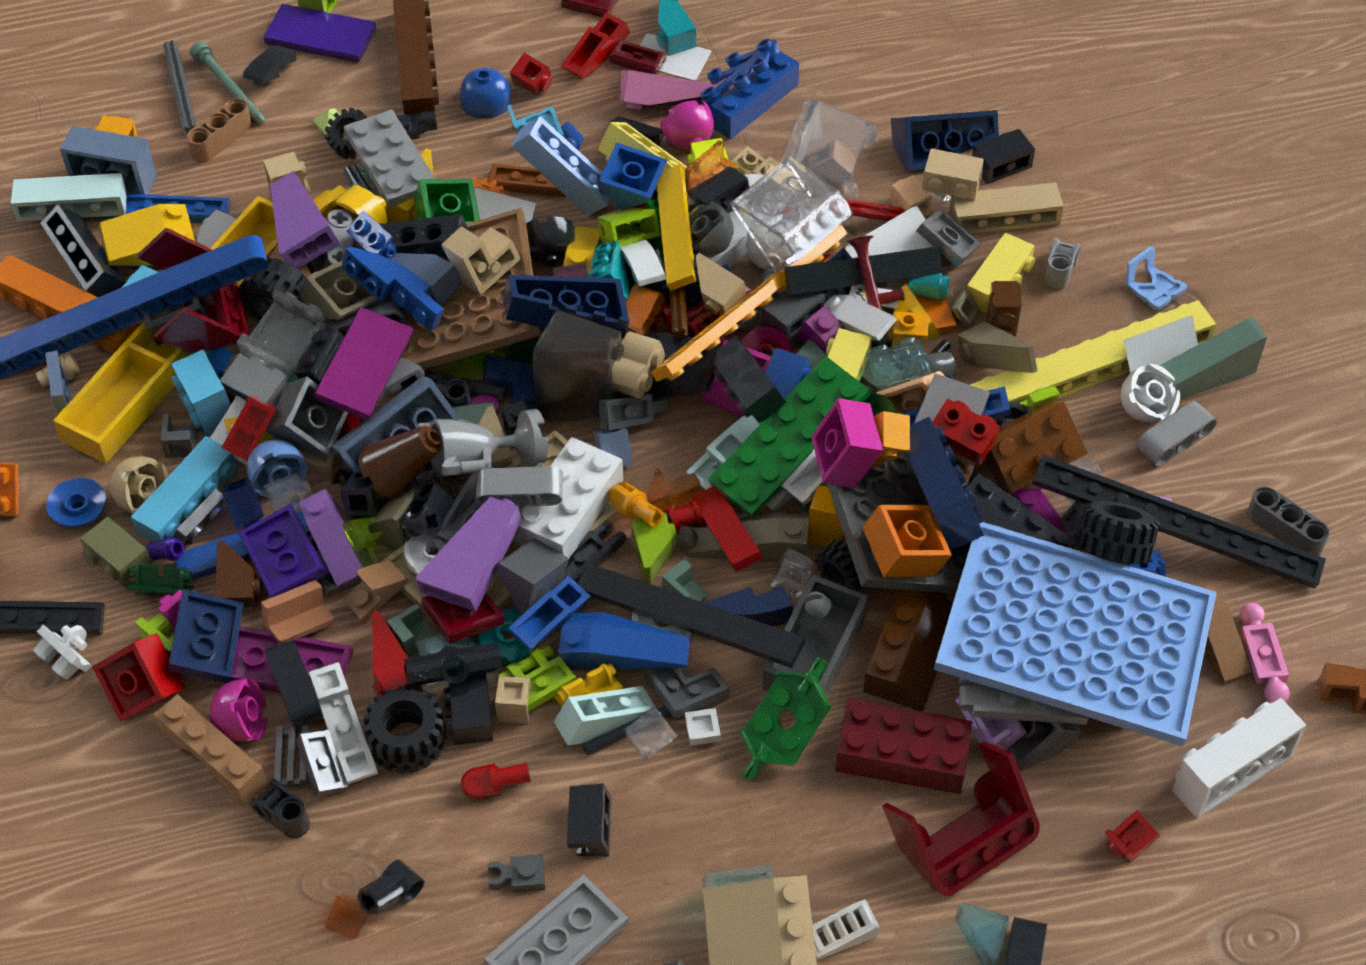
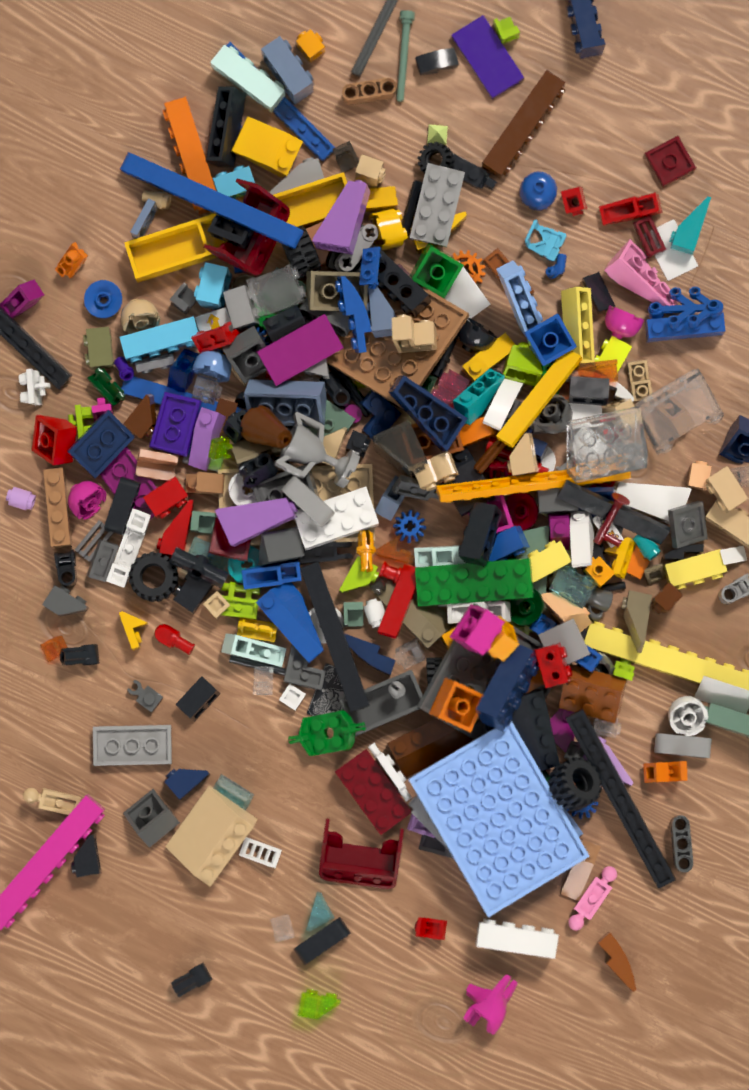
camera: 40 degrees right, 30 degrees up
(151, 778) = (20, 498): none -> lavender brick
(244, 191) = (345, 156): none -> clear smoke panel
(315, 848) = (64, 604): none -> dark grey slope
(341, 633) = (166, 498): none -> red brick
(424, 806) = (131, 623): none -> yellow slope
(660, 454) = (404, 522): none -> blue gear
(663, 924) = (184, 780): none -> dark blue slope
(710, 566) = (374, 612): none -> white brick
(745, 682) = (329, 697): none -> black sticker
(873, 210) = (667, 467): red axle -> none
(901, 694) = (397, 777): none -> white plate
(971, 266) = (678, 554): none -> black slope
(1023, 234) = (733, 555): none -> white sticker
(1193, 466) = (665, 772): none -> orange brick
(1291, 857) = (490, 1003): none -> dark pink piece

